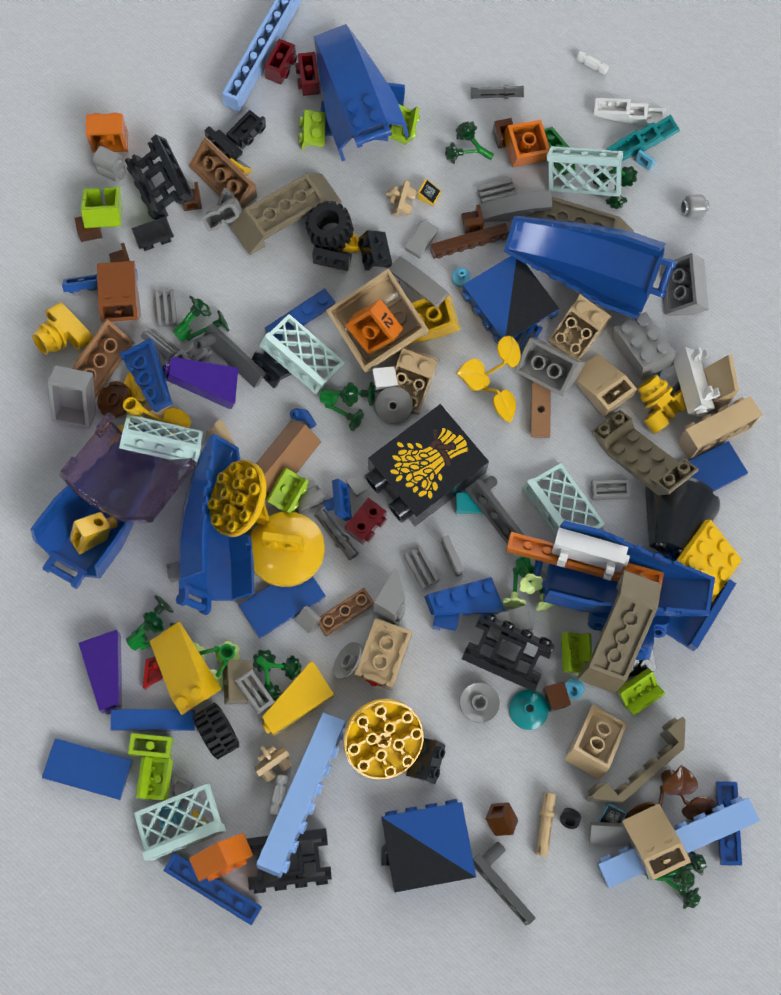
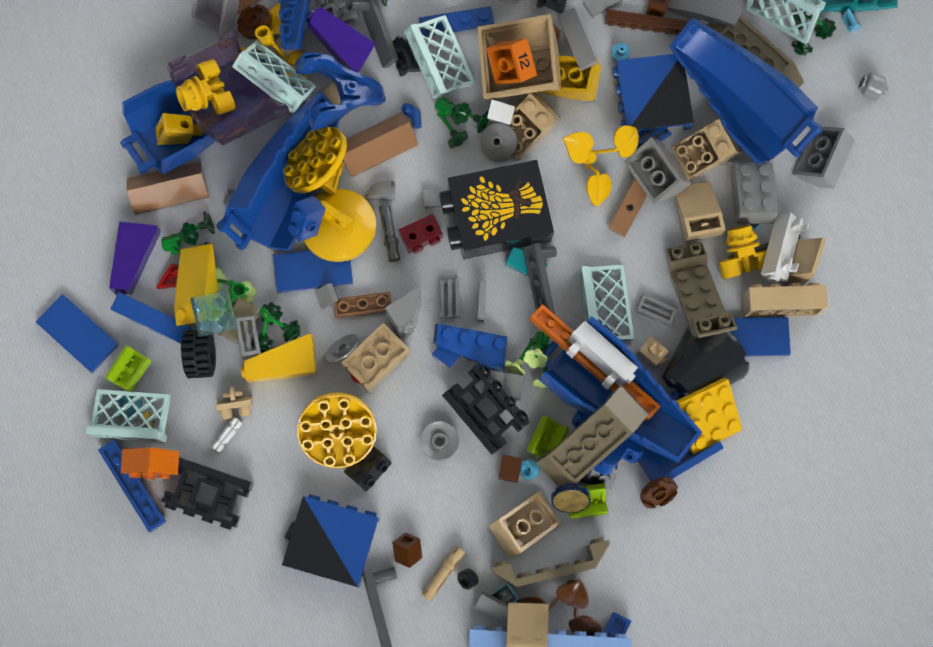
camera: 25 degrees right, 5 degrees up
(99, 484) = (195, 93): none -> yellow beam
(103, 595) = (161, 190): none -> medium nougat slope
(151, 746) = (138, 340): lime brick -> none
(181, 786) = (148, 386): light grey tile -> none
(214, 685) = (213, 313): none -> clear light blue plate
(238, 417) = (353, 88): none -> blue animal
(257, 555) = (306, 218): none -> blue brick
(287, 491) = (364, 174): lime bracket -> none
(301, 796) = (243, 444): light blue brick -> none
(340, 501) = (407, 205): blue tile -> none
(523, 718) = (480, 478): teal dish -> none
(627, 696) = (570, 498): none -> pearl gold tile
(629, 528) = (653, 353): none -> tan brick
(701, 652) = (658, 492): none -> reddish brown tile

